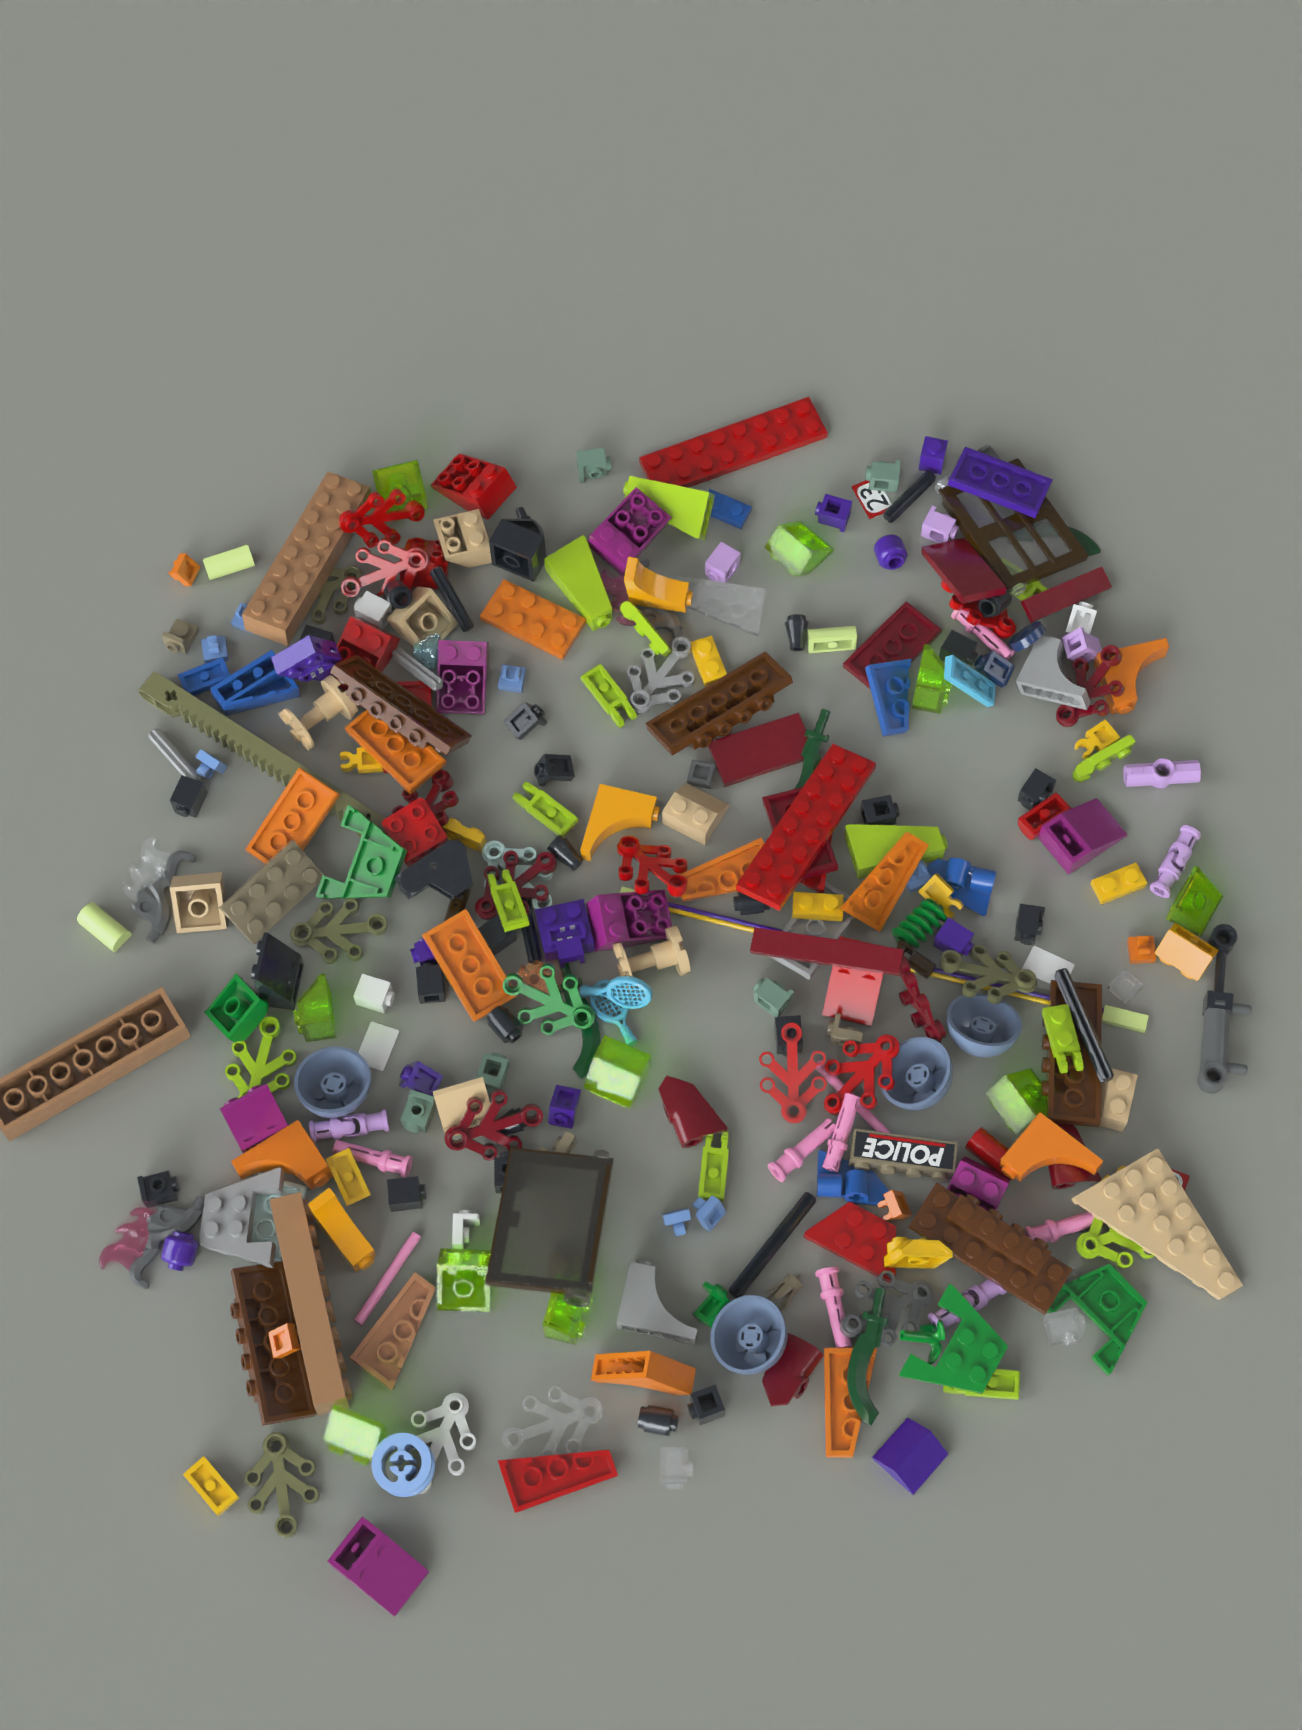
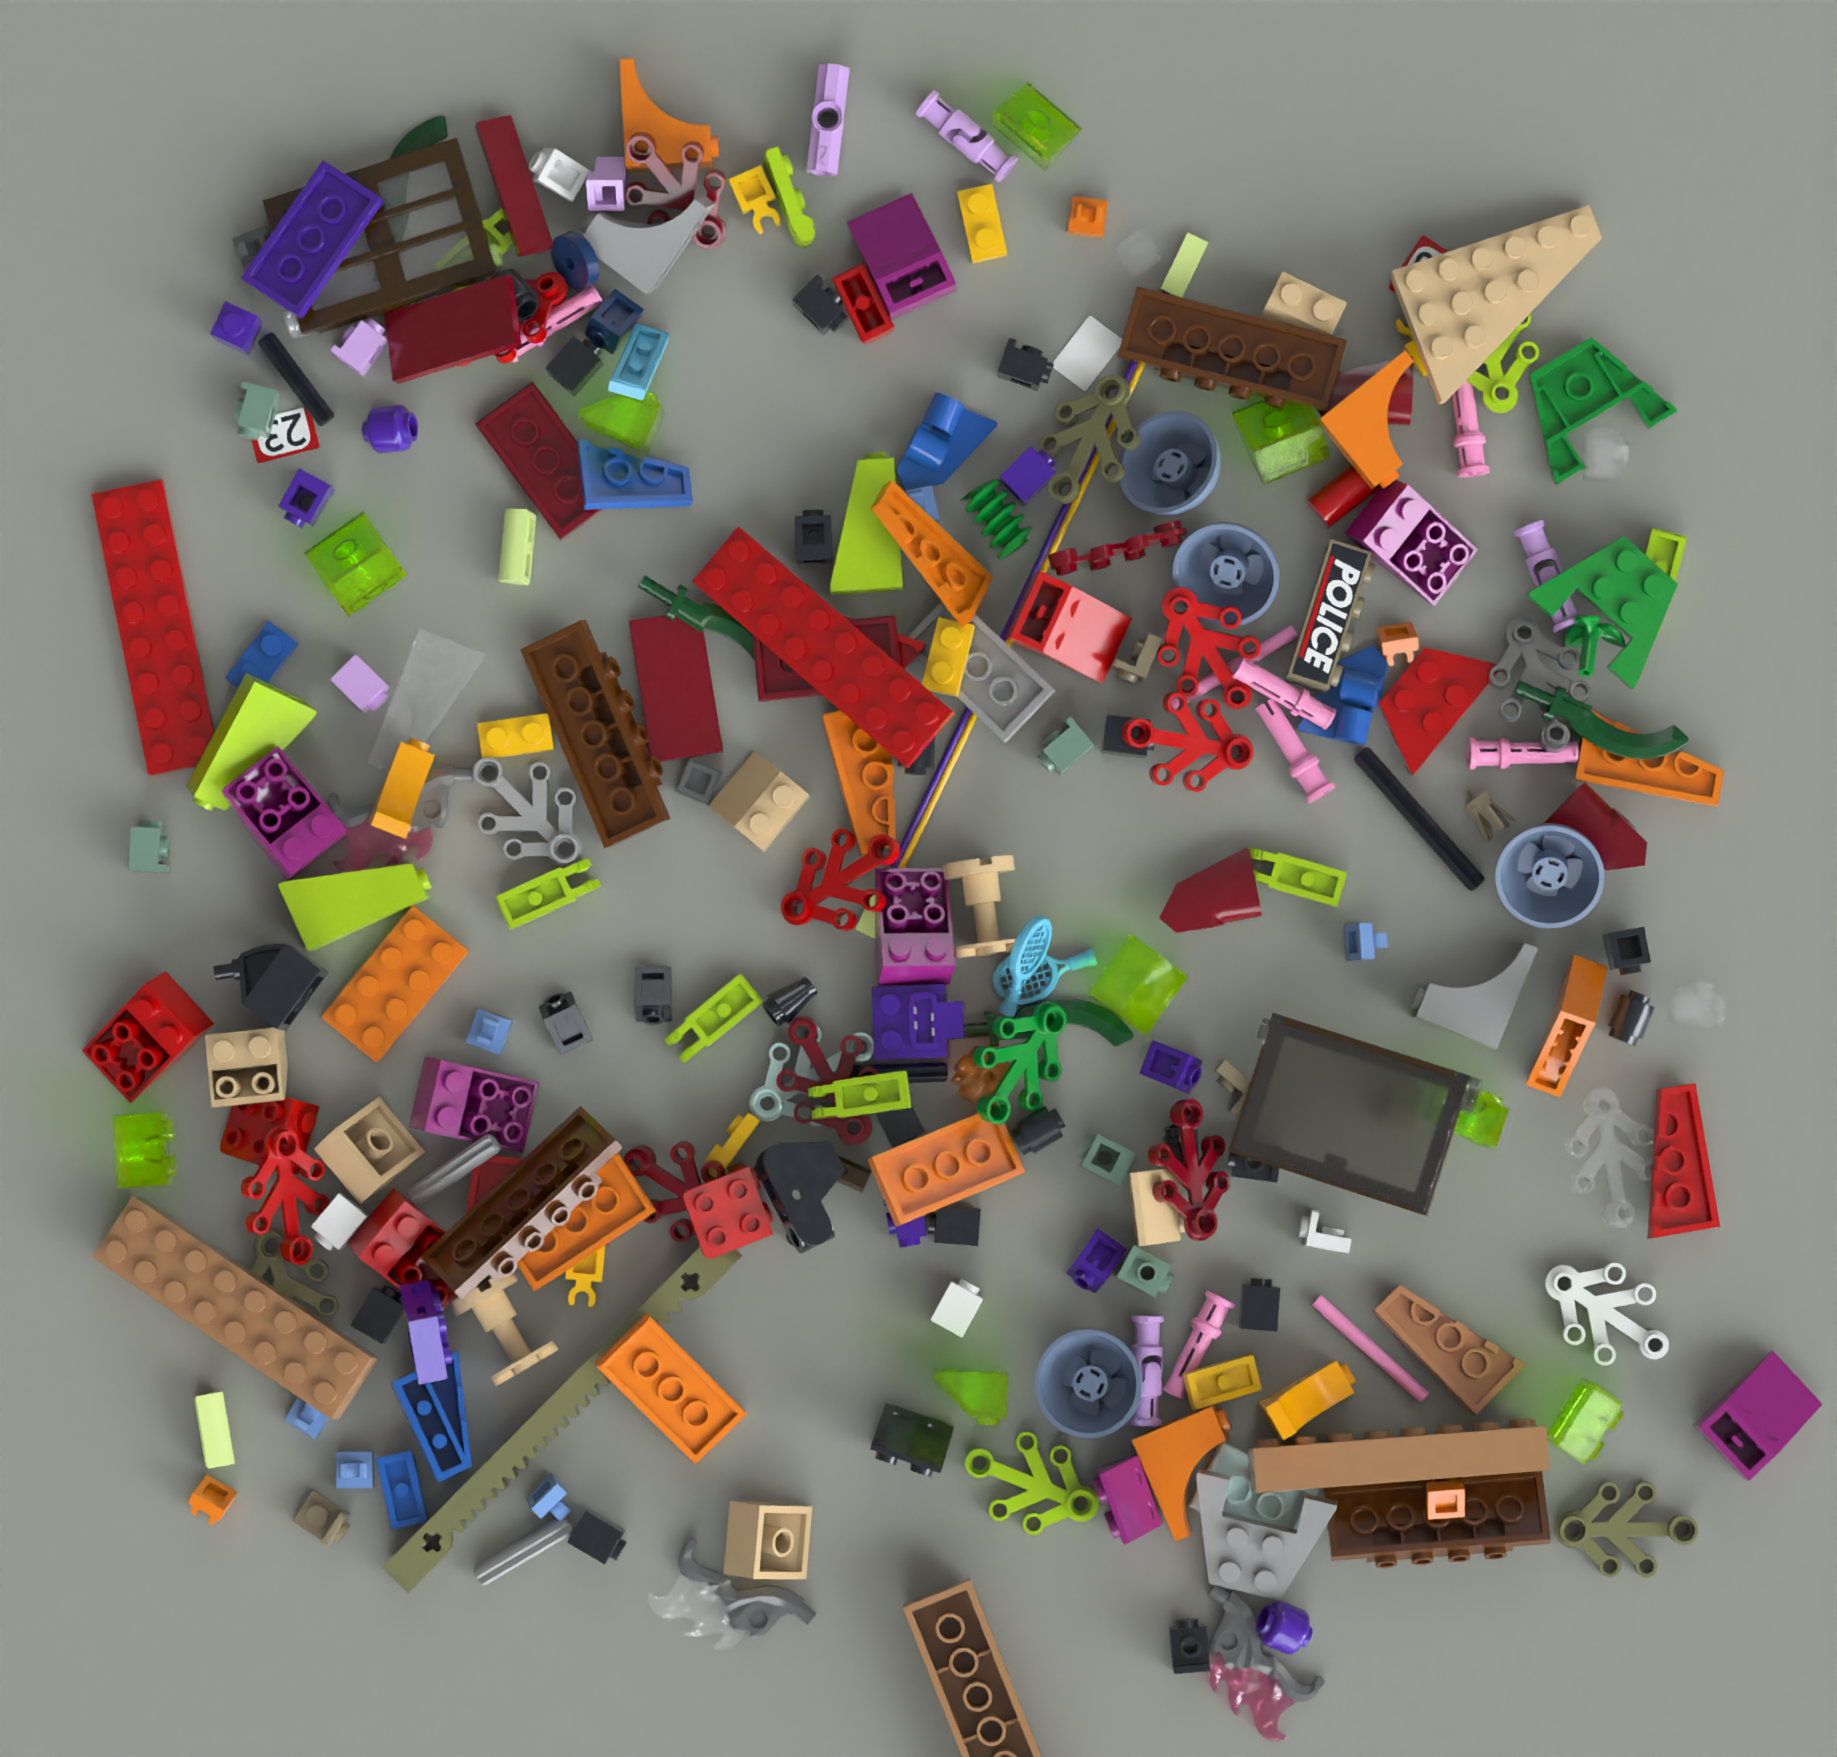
camera: 80 degrees left, 20 degrees up
(103, 926) = (778, 1683): yellowish green brick -> none
(211, 1486) = (1612, 1622): yellow plate -> none
(237, 1010) = (949, 1505): green slope -> none
(272, 892) = (775, 1432): dark tan plate -> none
(335, 930) = (846, 1352): olive plant -> none
(352, 521) = (200, 1228): red plant -> none
(373, 866) = (765, 1277): wing -> none
(378, 1045) = (1030, 1315): white sticker -> none
(398, 594) = (332, 1179): black brick -> none
(403, 1486) = (1666, 1365): light blue wheel -> none
(427, 651) = (429, 1149): clear light blue piece -> none
(451, 599) = (346, 1100): black axle -> none
(462, 1280) = (1394, 1243): clear neon green slope -> none
(615, 811) = (738, 919): light orange arch -> none
(644, 628) = (452, 817): lime hinge -> none
(709, 1212) = (1361, 895): medium blue tile -> none
(712, 1304) = (1491, 916): green bracket -> none
(796, 630) = (496, 596): black cone -> none
(827, 951) = (1031, 659): dark red tile -> none
(911, 1455) = (1732, 696): dark purple slope -> none
(916, 1253) = (1474, 630): yellow slope -> none
(917, 961) = (1053, 535): dark brown bar -> none
(940, 892) = (954, 479): yellow plate -> none
(992, 1247) = (1486, 528): reddish brown plate -> none
(1062, 1036) = (1211, 360): lime hinge -> none
(1084, 1025) = (1199, 327): black axle -> none
(1186, 952) = (1110, 157): light orange brick -> none
(1216, 1013) = (1214, 141): dark grey piece -> none

